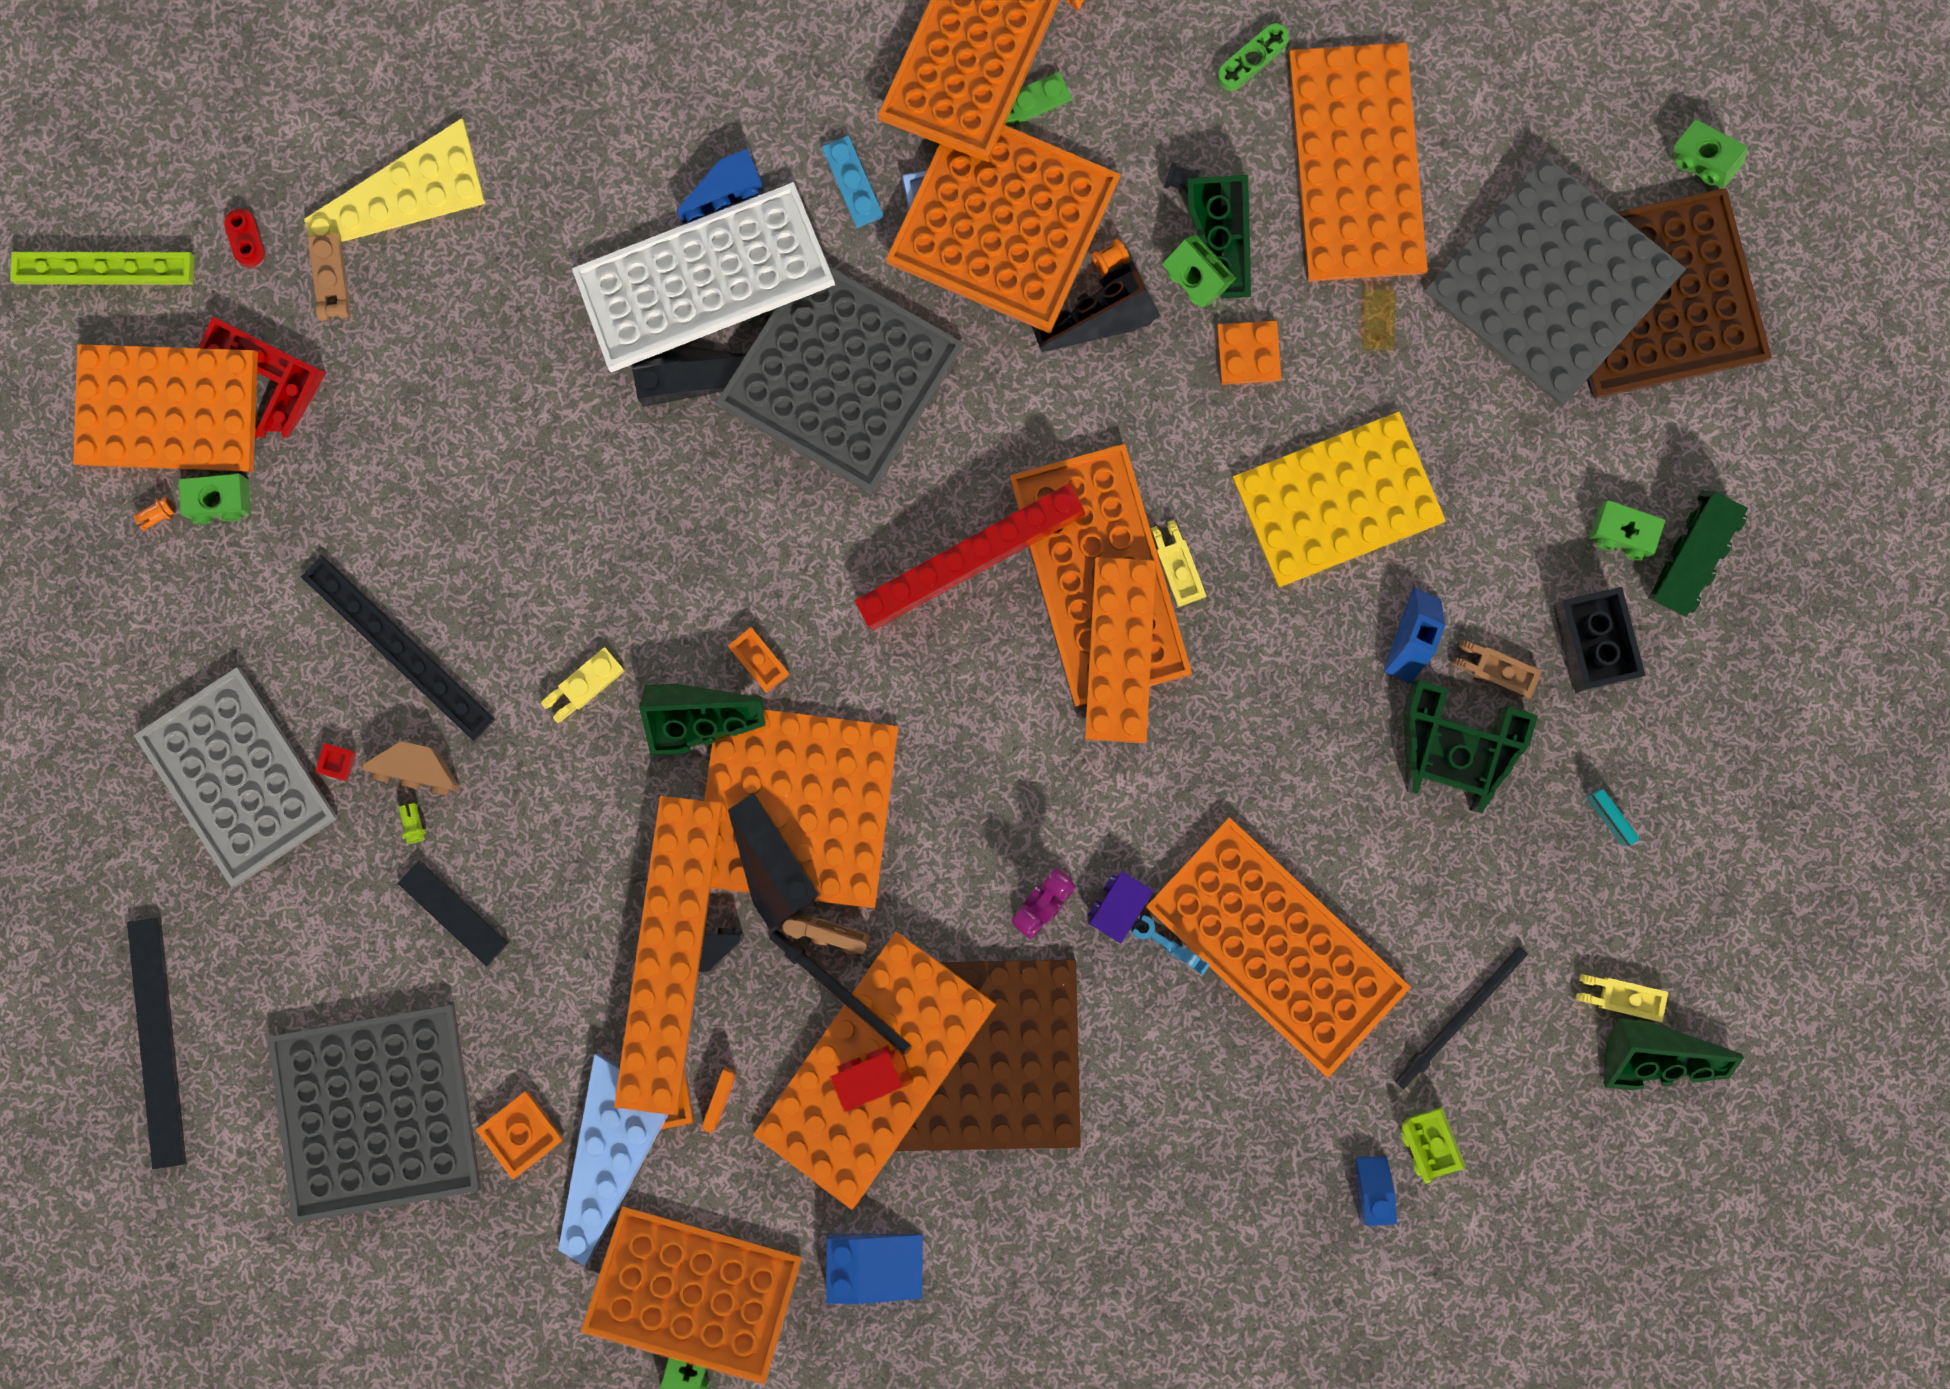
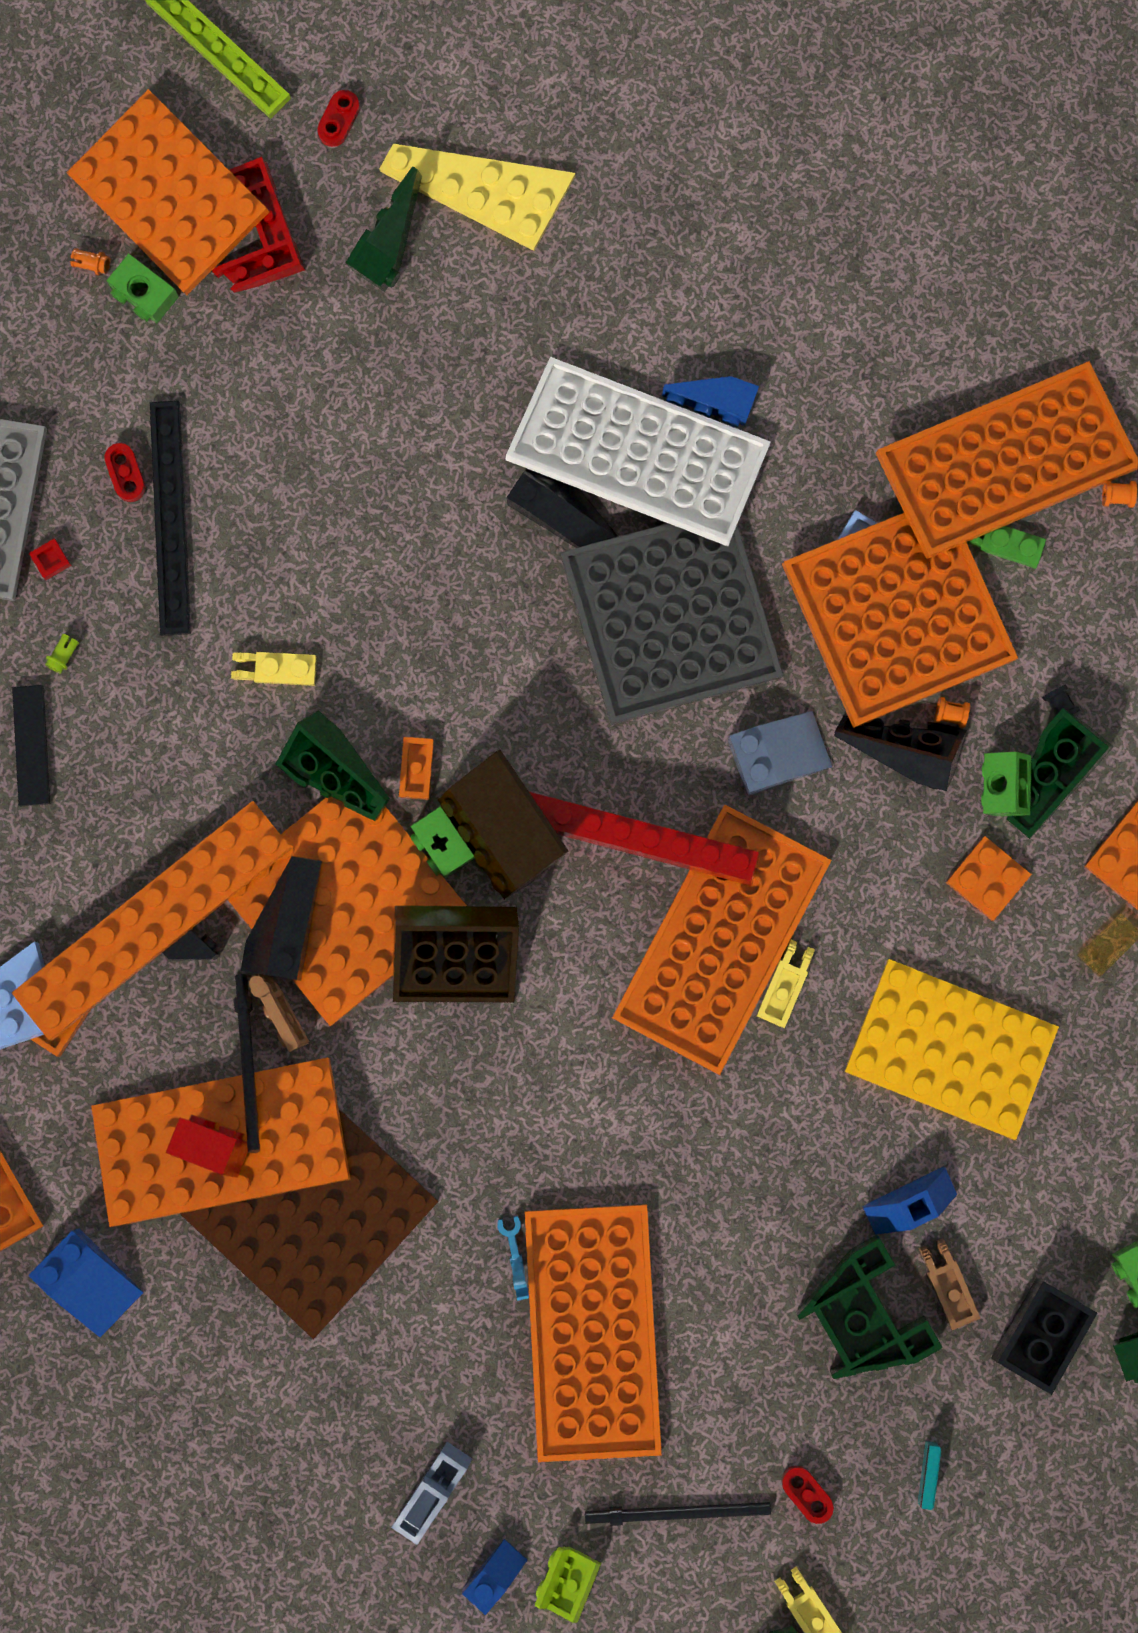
camera: 45 degrees right, 0 degrees up
(329, 276) = (371, 199): medium nougat plate -> none
(332, 646) = (125, 473): none -> red plate
(369, 305) = (381, 252): none -> dark green wedge
(413, 766) = (101, 614): medium nougat slope -> none
(719, 1100) = (90, 1058): orange tile -> none
(815, 685) = (438, 825): none -> bright green brick
(852, 181) = (815, 480): dark azure plate -> none
(863, 639) = (502, 825): none -> dark brown slope
(917, 767) = (455, 953): none -> dark brown slope
(1012, 402) = (779, 752): none -> sand blue slope
(1043, 903) = (451, 1139): magenta gear -> none
(1119, 907) = (505, 1193): dark purple brick -> none
(1120, 650) = (683, 1008): orange plate -> none
(1273, 1175) = (432, 1493): none -> sand blue slope
(1539, 914) = (806, 1494): none -> red plate

